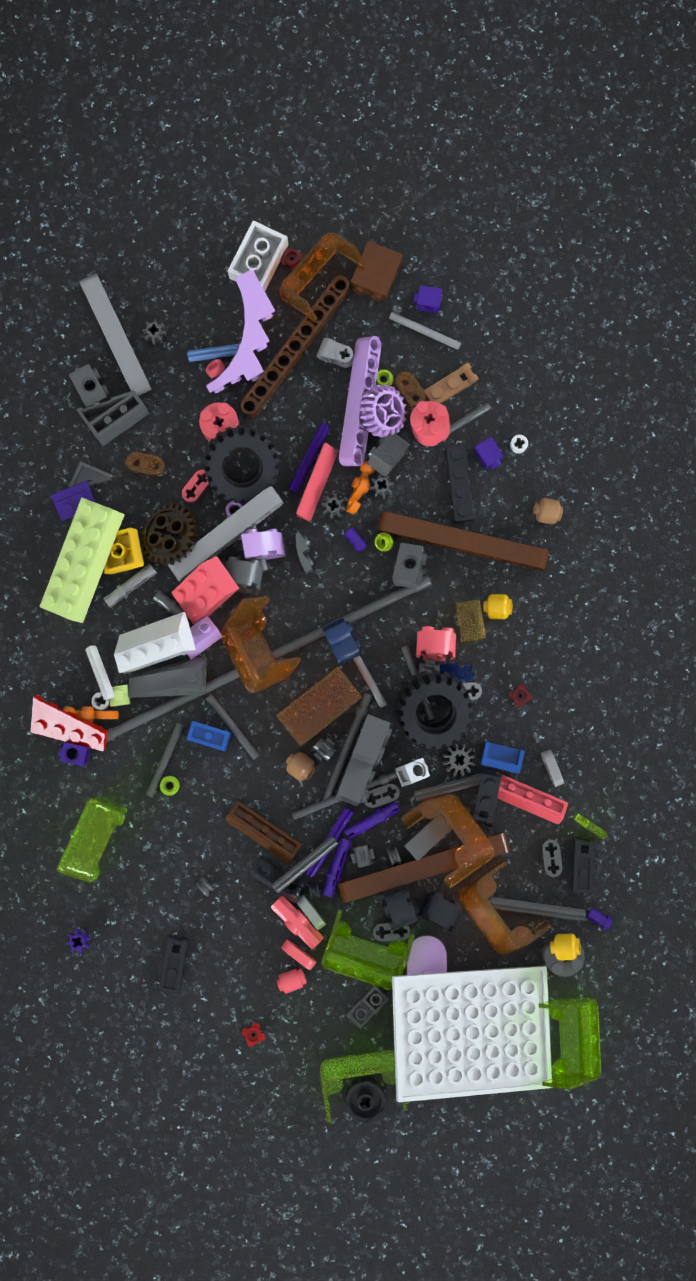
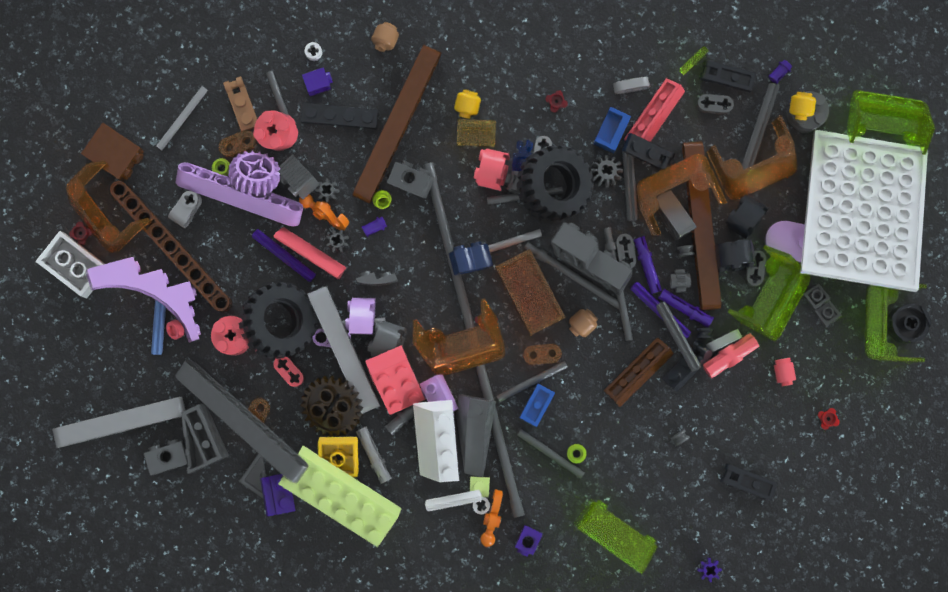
camera: 85 degrees left, 0 degrees up
(65, 726) = (496, 550): wing -> none
(135, 450) = (242, 421): none -> dark grey beam
(151, 327) = (128, 378): dark grey gear -> none
(262, 731) = (542, 354): none -> clear orange plate
(298, 954) = (761, 360): coral beam -> none
(324, 749) = (571, 296): dark grey gear -> none
(406, 774) = (610, 217): light grey brick -> none
(428, 299) = (151, 108): dark purple brick -> none

